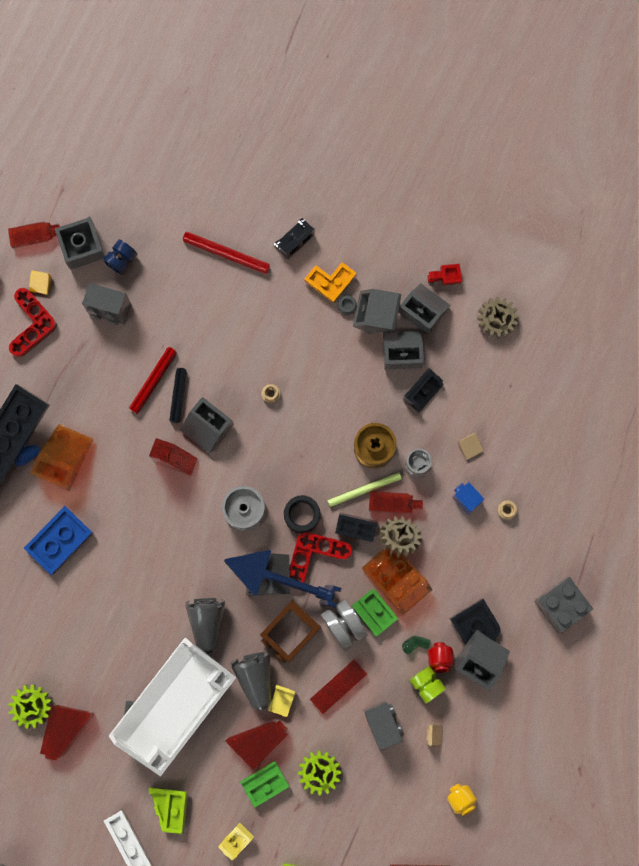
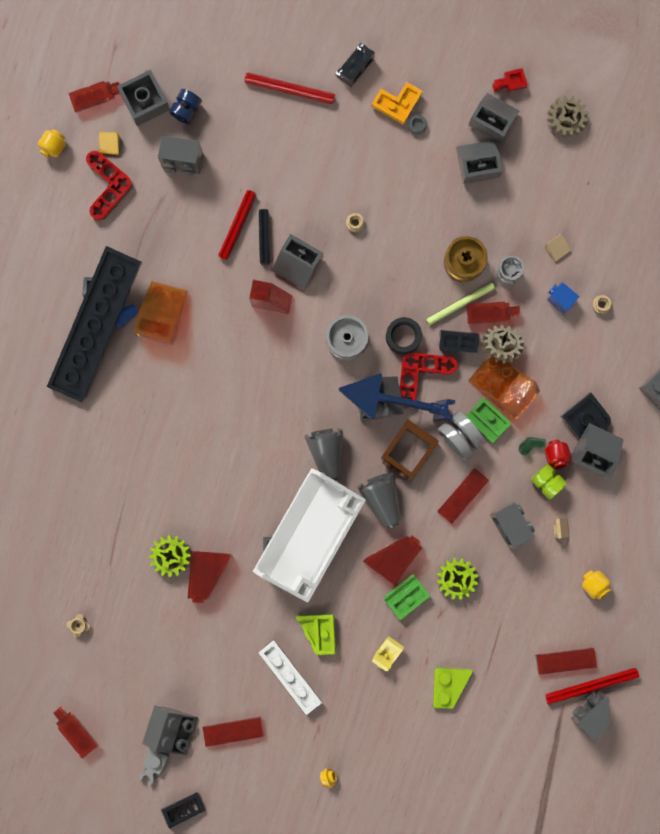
camera: 10 degrees left, 5 degrees up
(58, 540) = (170, 394): blue plate -> none
(282, 700) = (411, 516): light yellow bracket -> none
(377, 311) = (449, 126): dark grey slope -> none
(423, 390) = (504, 198): black hinge -> none

